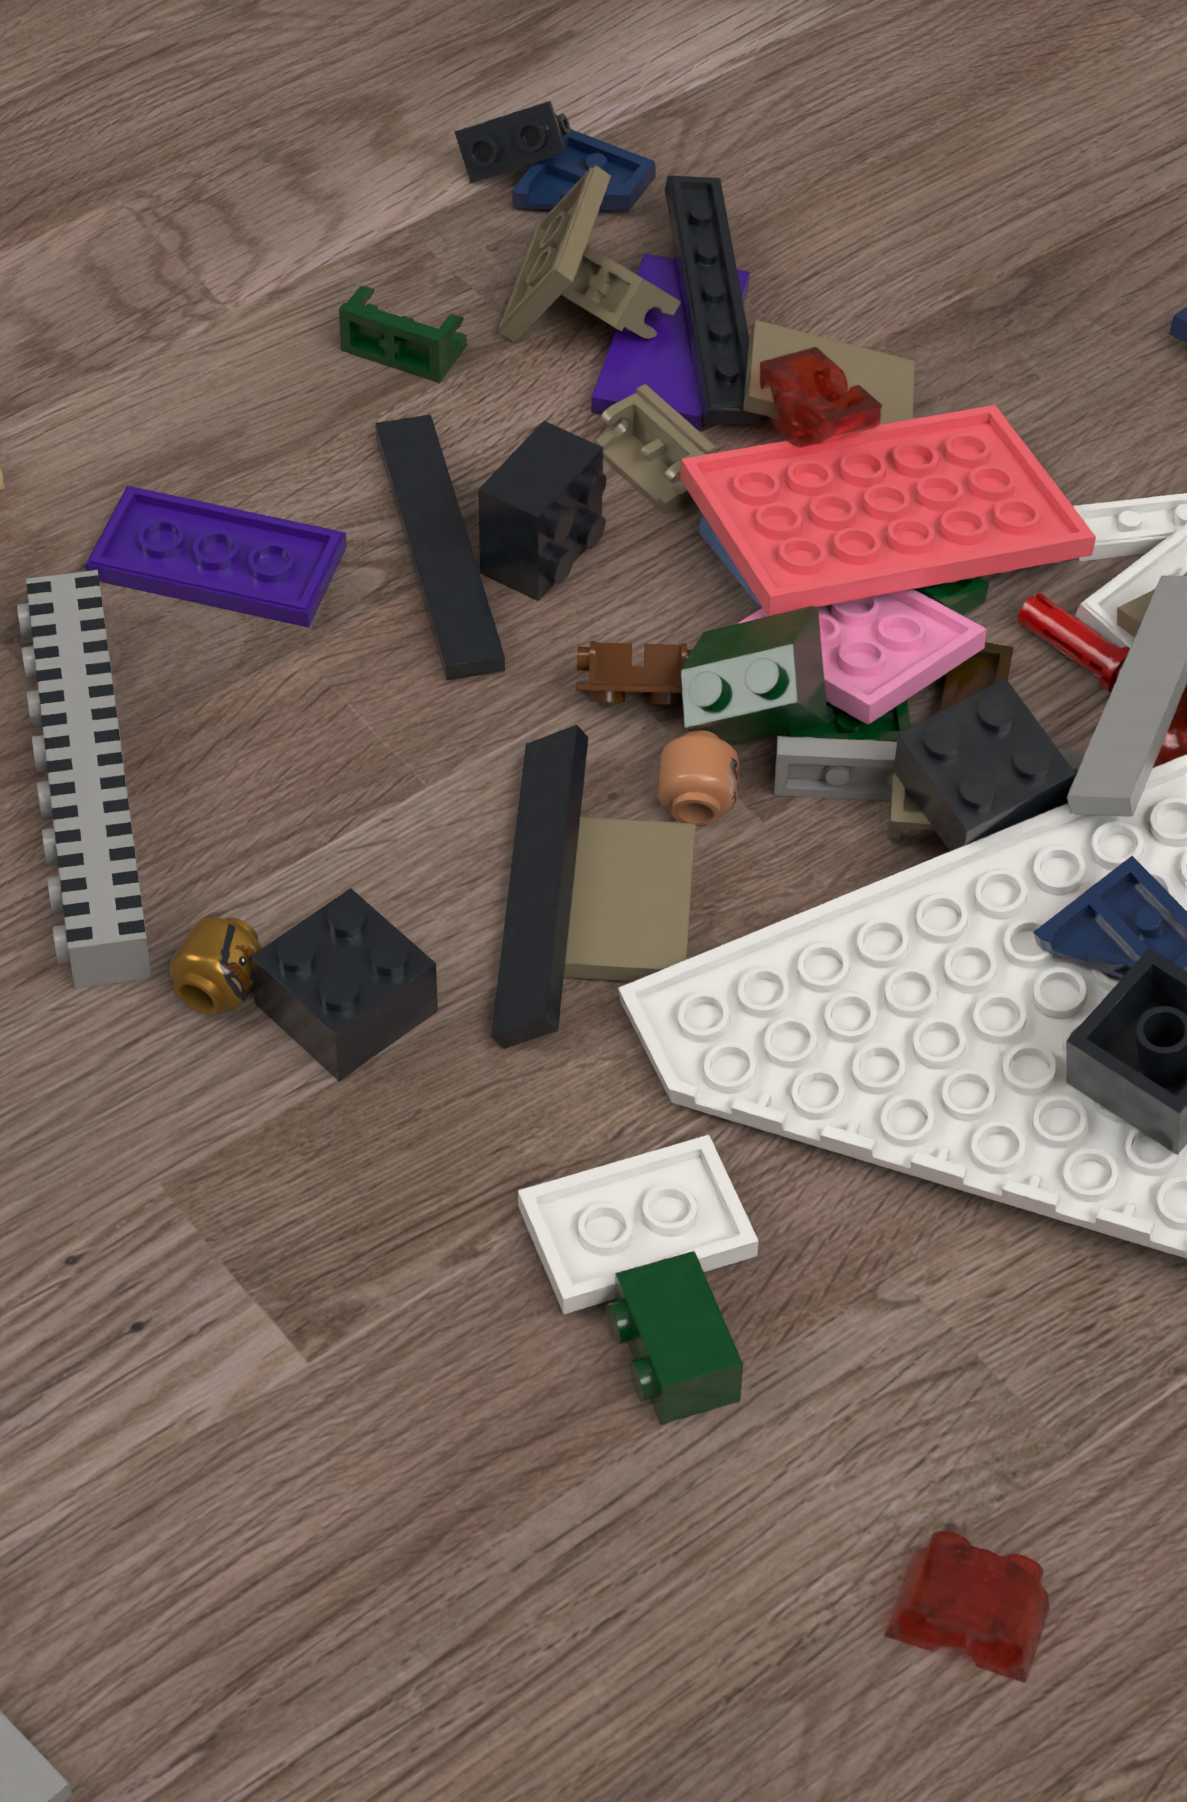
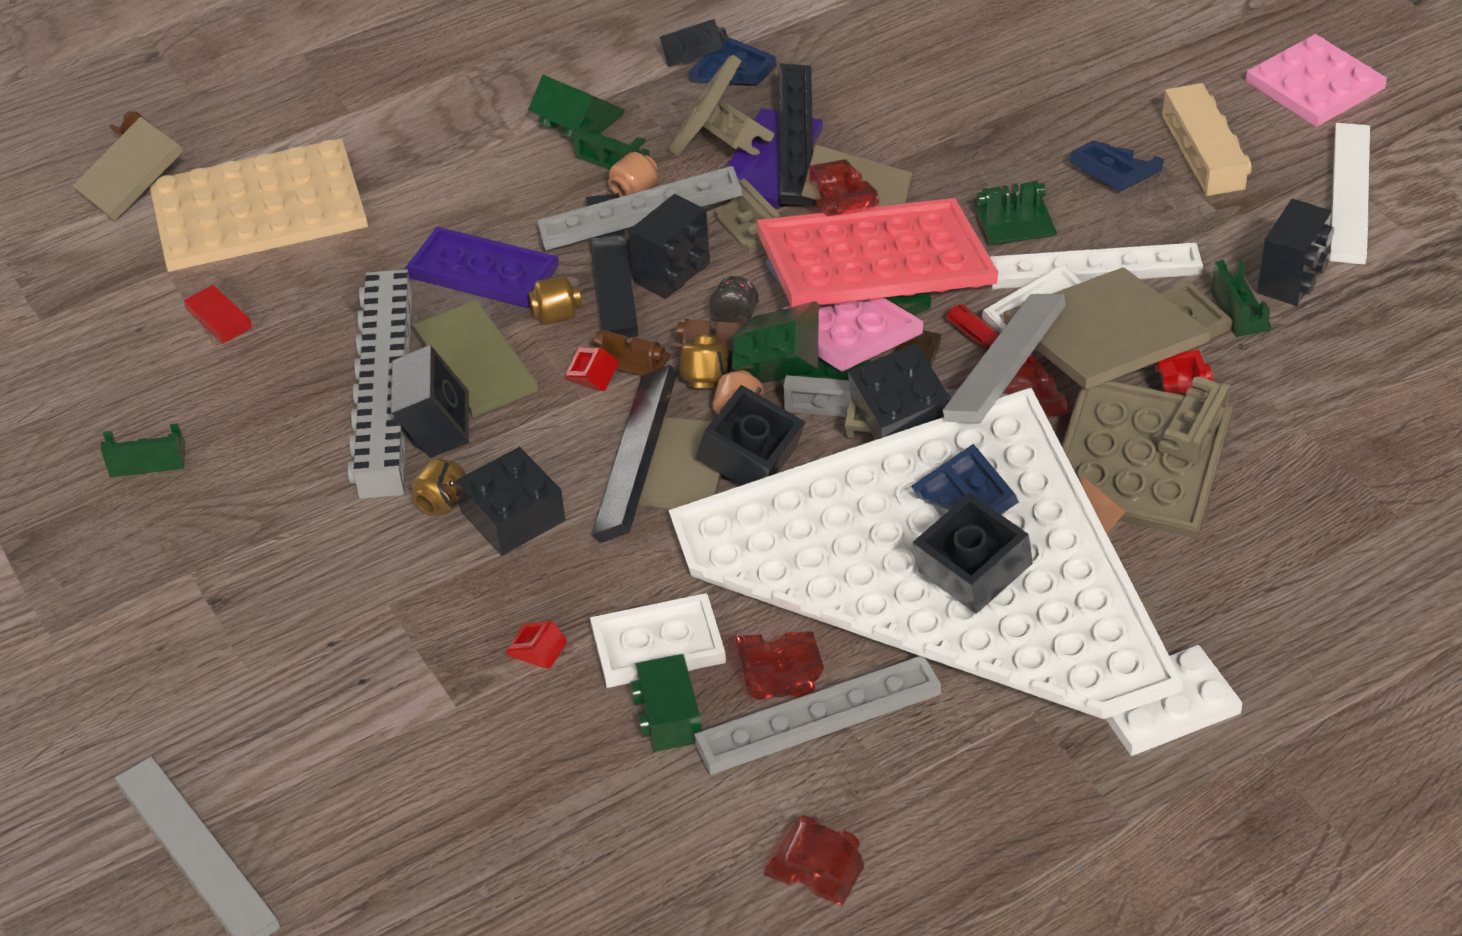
camera: 10 degrees right, 5 degrees down
(179, 812) = (429, 401): none -> black brick
(233, 723) = (477, 356): none -> olive tile
(324, 263) = (571, 107): none -> dark green slope
(355, 613) = (554, 300): none -> pearl gold head
(430, 1240) = (538, 643): none -> red slope
(438, 733) = (592, 368): none -> red slope
(452, 384) = (633, 174): none -> nougat head
(470, 442) = (632, 208): none -> light grey tile
(512, 712) = (636, 358): none -> reddish brown hinge
(632, 716) = (703, 361): none -> pearl gold head
(661, 599) = (734, 300): none -> clear smoke head
(738, 855) = (749, 438): none -> black brick
(856, 1257) = (779, 666): none -> clear red cylinder
(927, 1343) = (817, 714): none -> light grey plate
(1095, 428) = (1014, 215): none -> dark green hinge

